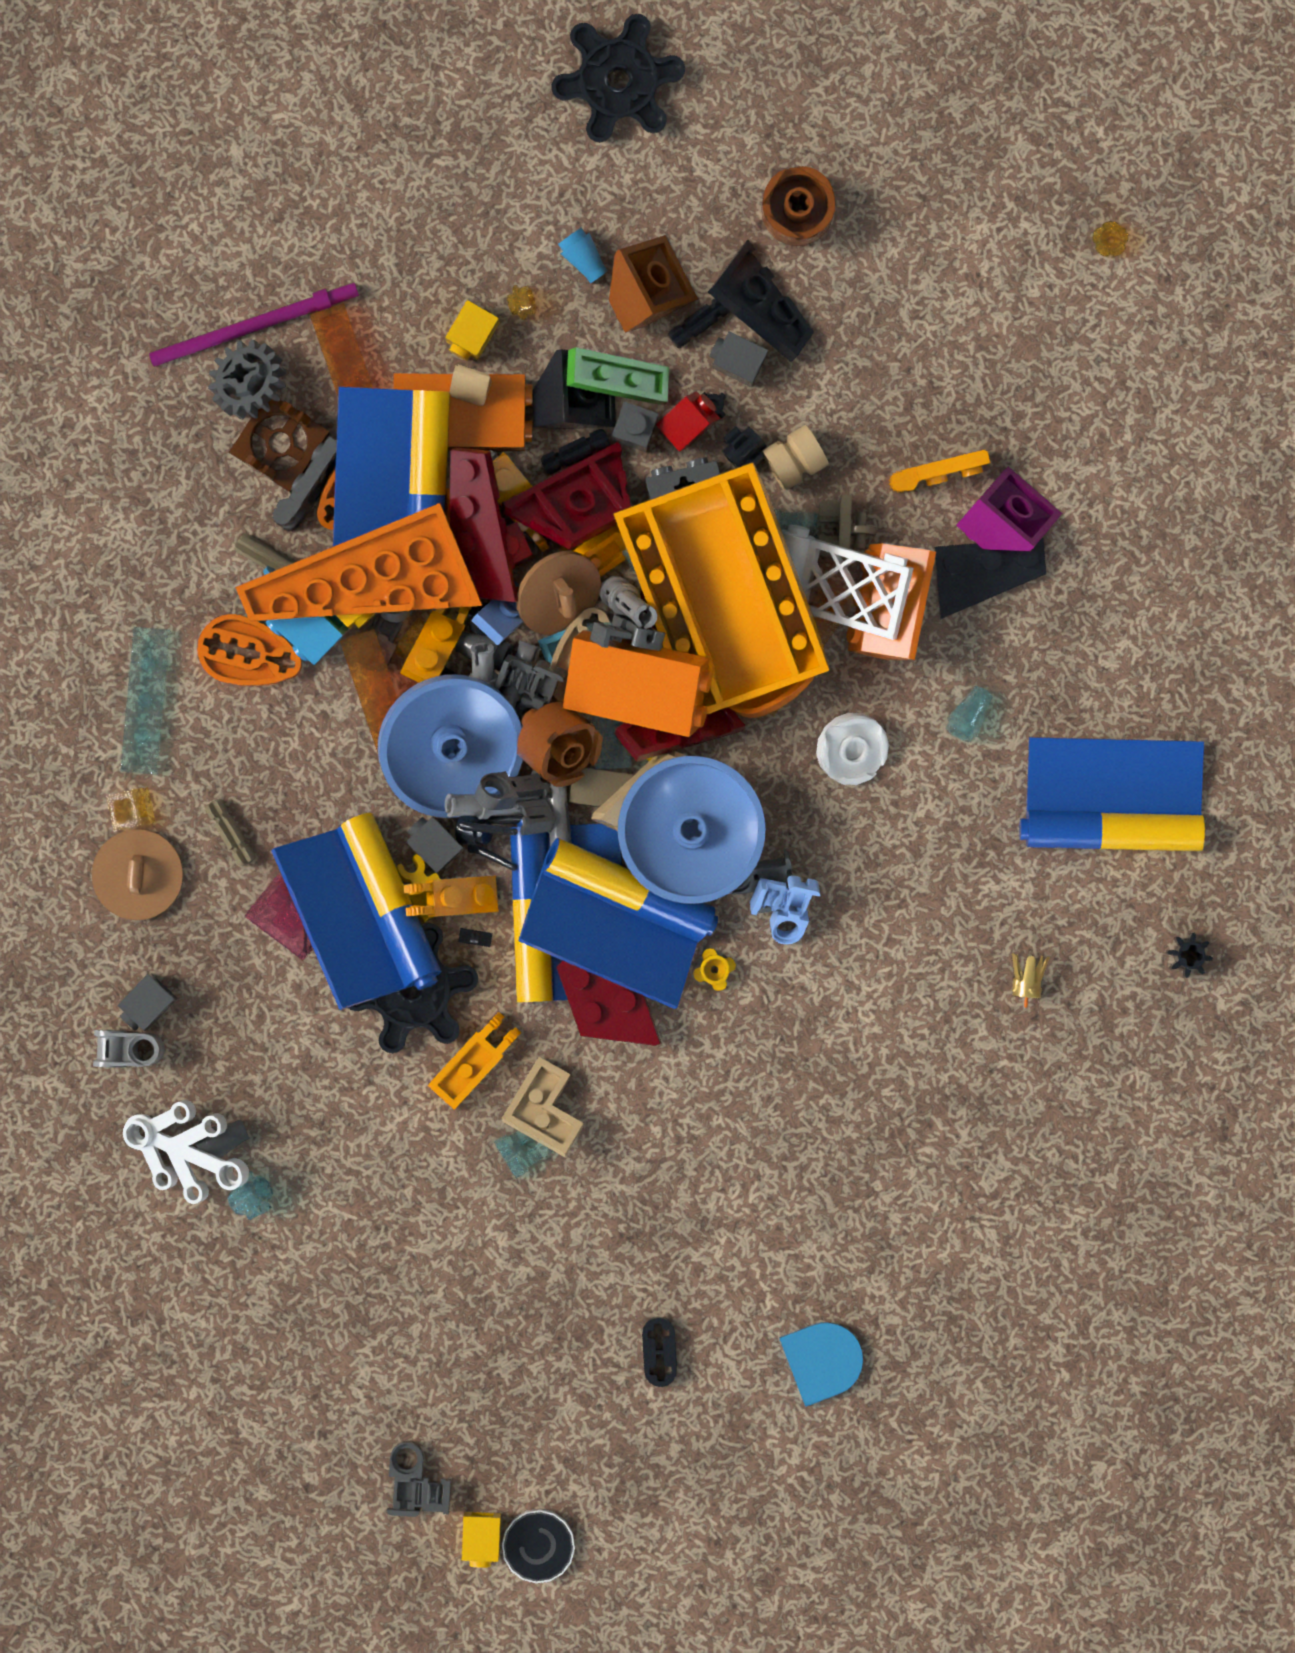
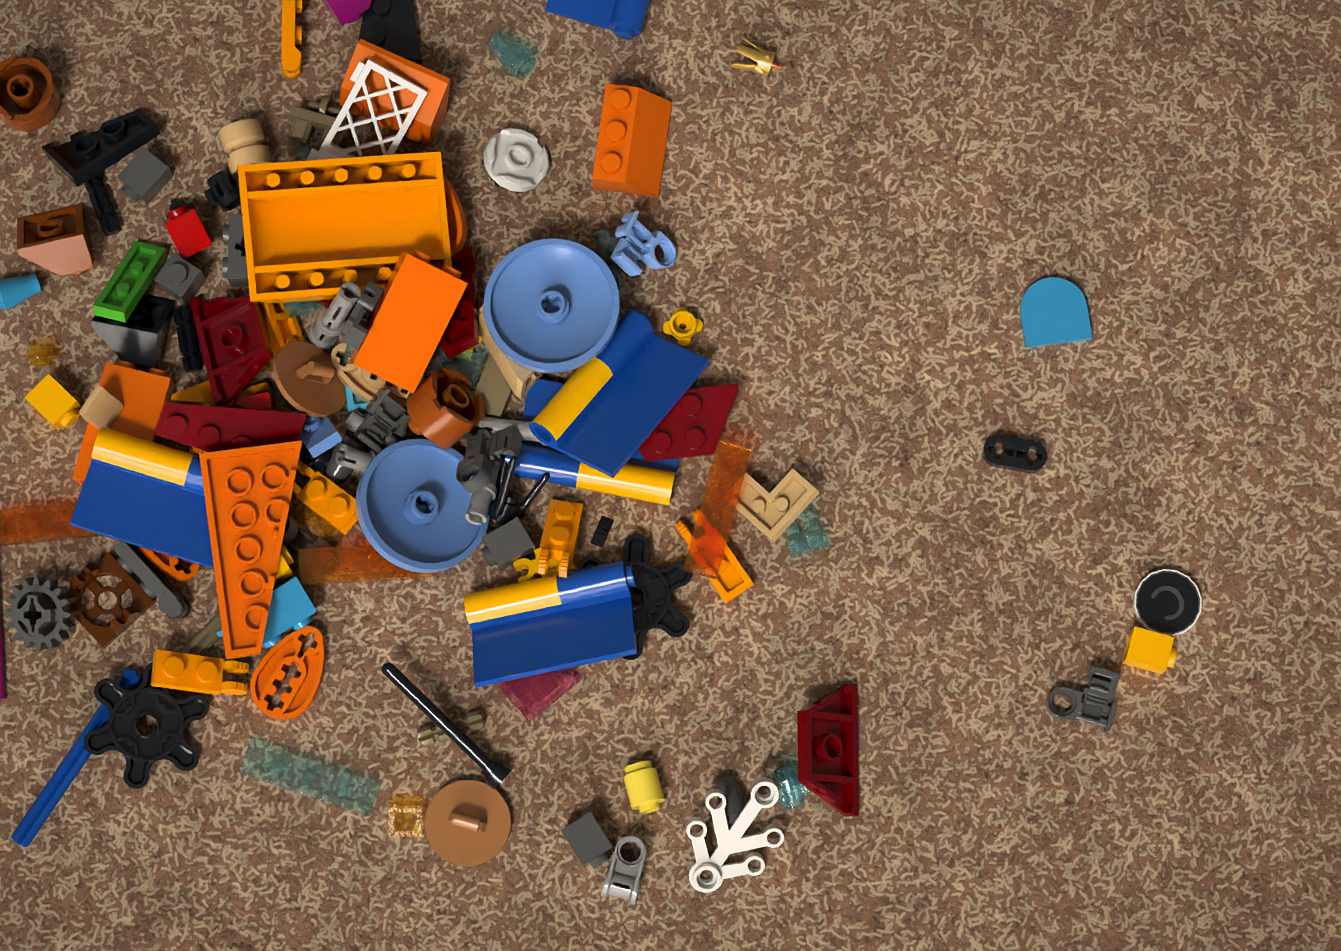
camera: 70 degrees left, 10 degrees down
(110, 456) = (66, 770): none -> blue axle
(132, 523) = (144, 750): none -> black plate
(196, 888) = (493, 770): none -> black piece
(215, 1046) = (643, 787): none -> light yellow brick
(220, 554) = (196, 673): none -> light orange hinge
(299, 1230) = (830, 749): none -> dark red wing
(520, 1054) = (717, 509): none -> clear orange plate
(903, 867) = (631, 141): none -> orange slope

